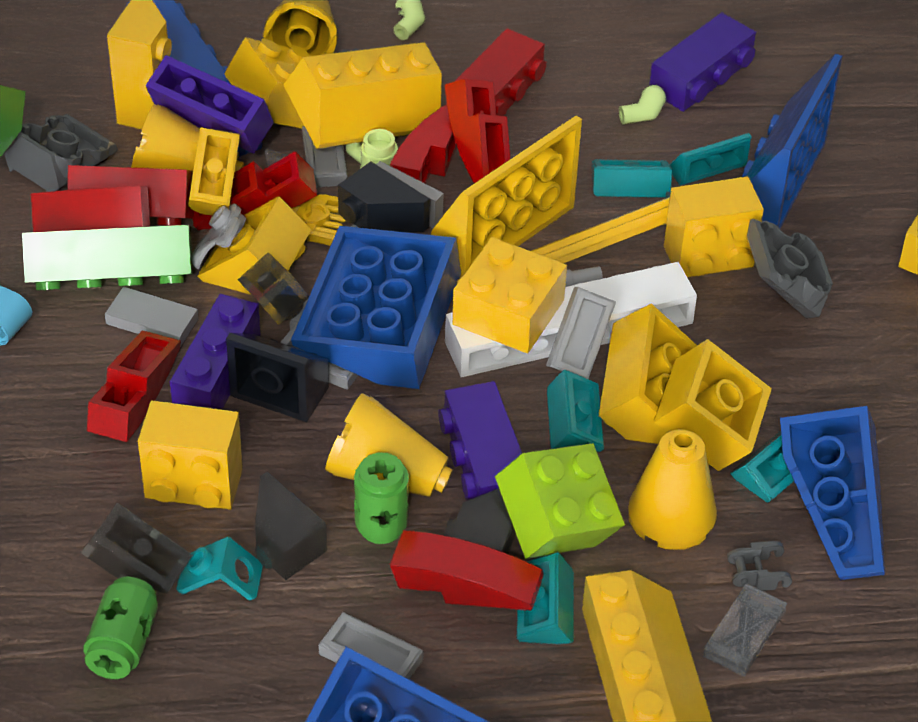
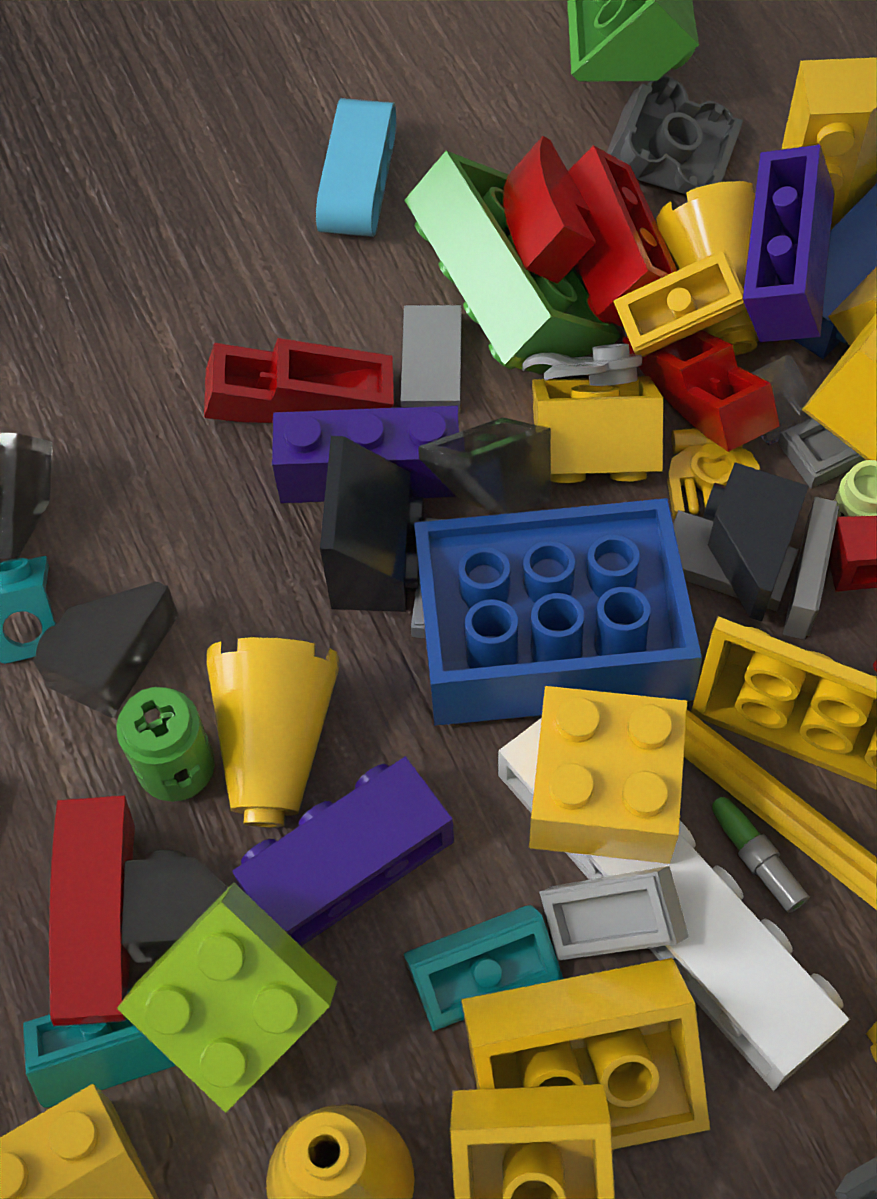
camera: 75 degrees right, 15 degrees up
(190, 455) = (159, 488): yellow brick -> none

